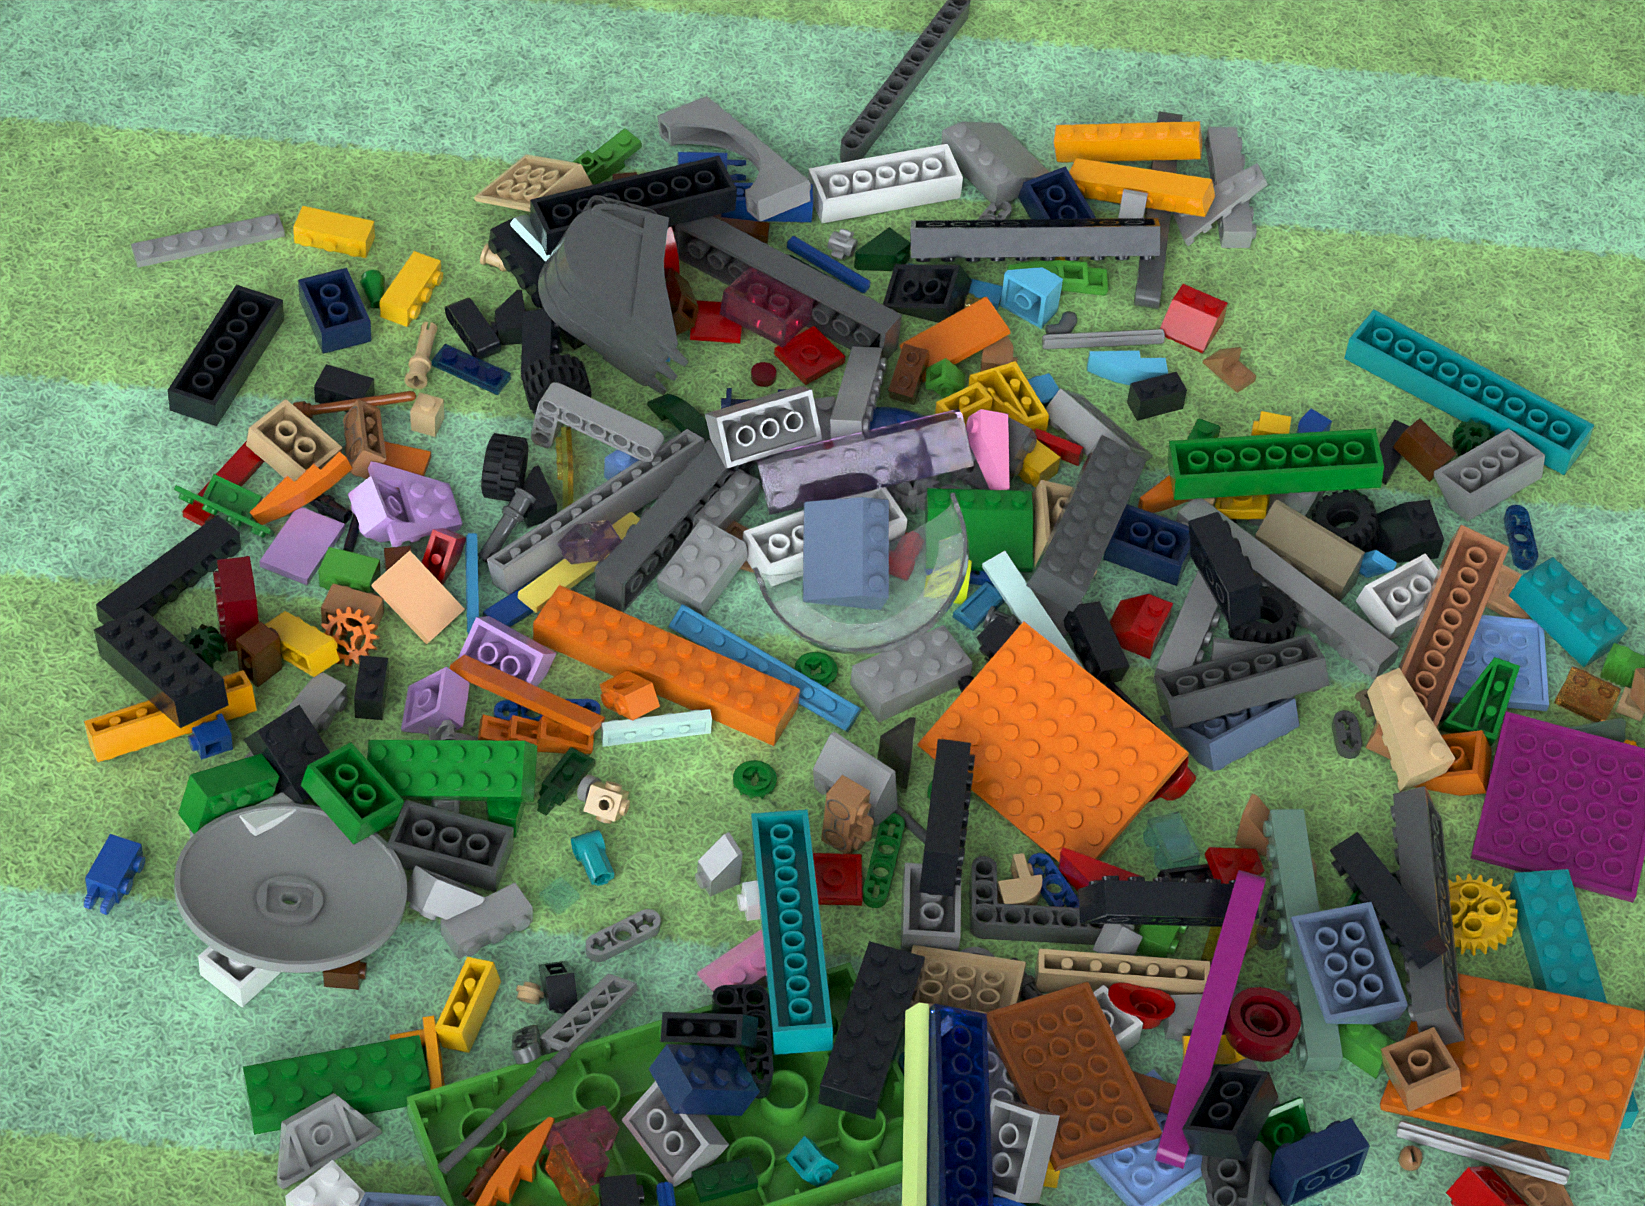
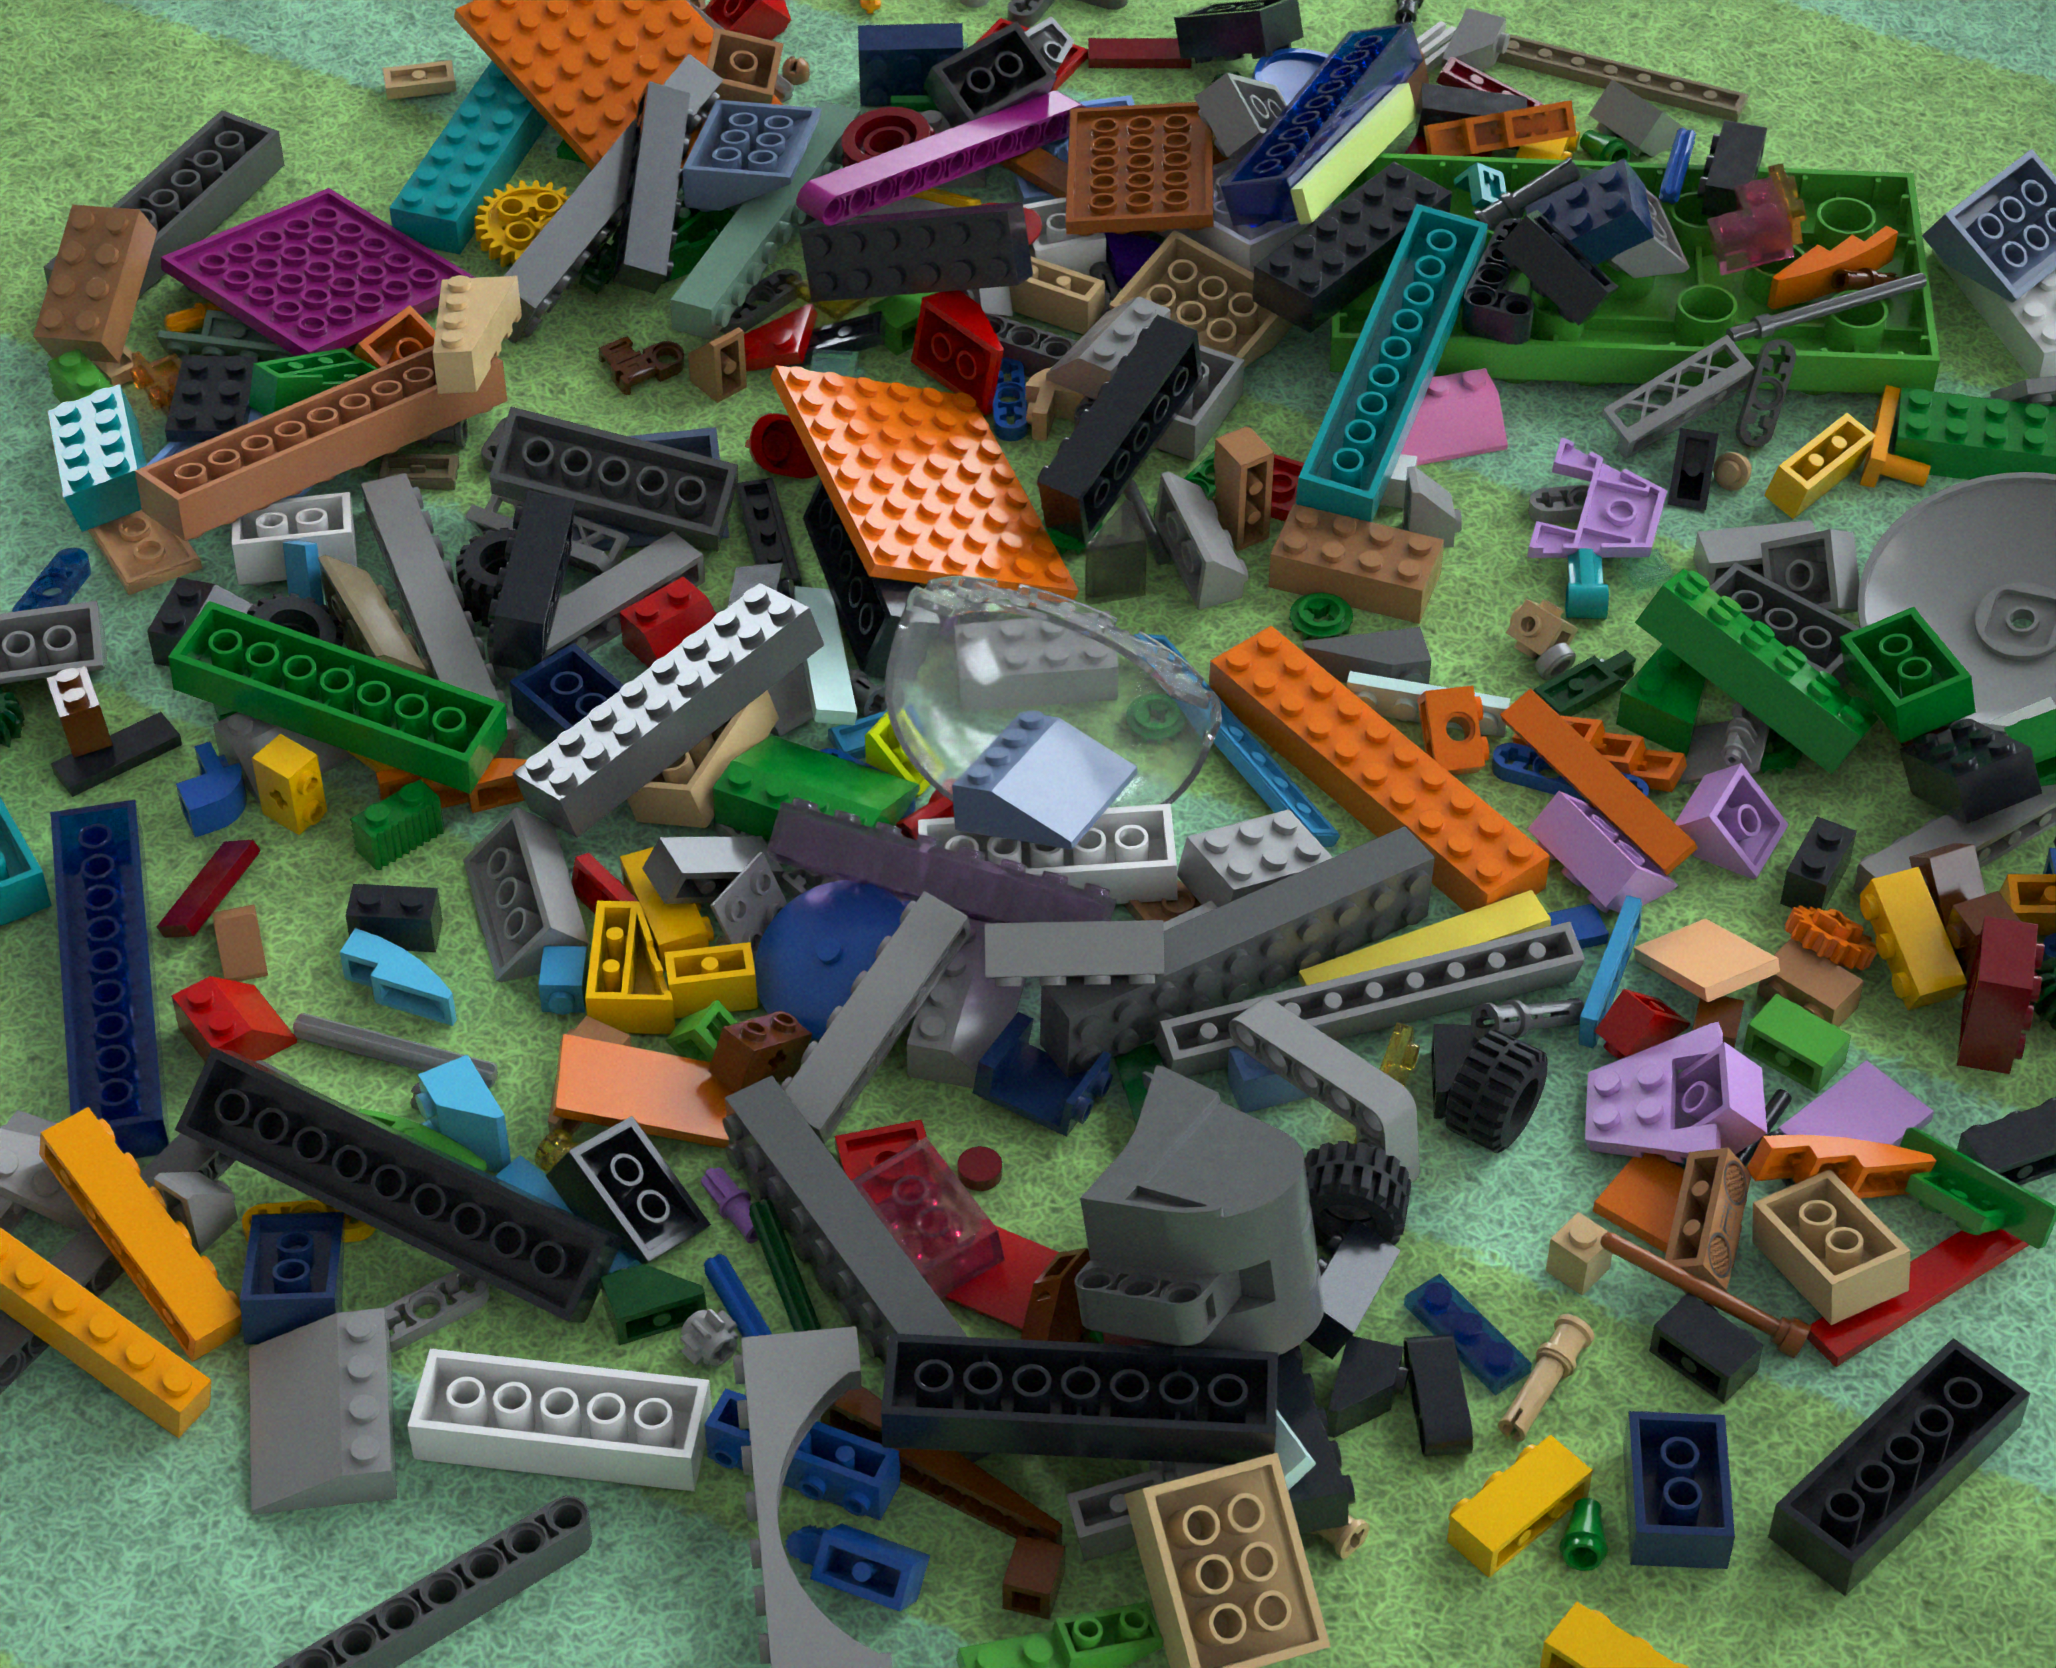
camera: 150 degrees left, 5 degrees down
(285, 680) = (1950, 876): none -> brick
(589, 542) = (1424, 908): clear purple brick -> none
(593, 911) = (1617, 514): none -> lavender wing
(704, 748) = (1388, 654): none -> dark grey slope
(729, 809) = (1358, 561): none -> medium nougat brick
(778, 1137) = (1513, 205): none -> dark grey pin
(990, 445) = (731, 841): bright pink slope -> none
(999, 907) = (1100, 349): none -> light grey slope
(1269, 384) = (208, 889): none -> dark red tile
(1273, 315) = (110, 974): none -> clear blue brick
(1319, 824) = (634, 367): none -> reddish brown piece
(1548, 686) = (210, 397): none -> black plate

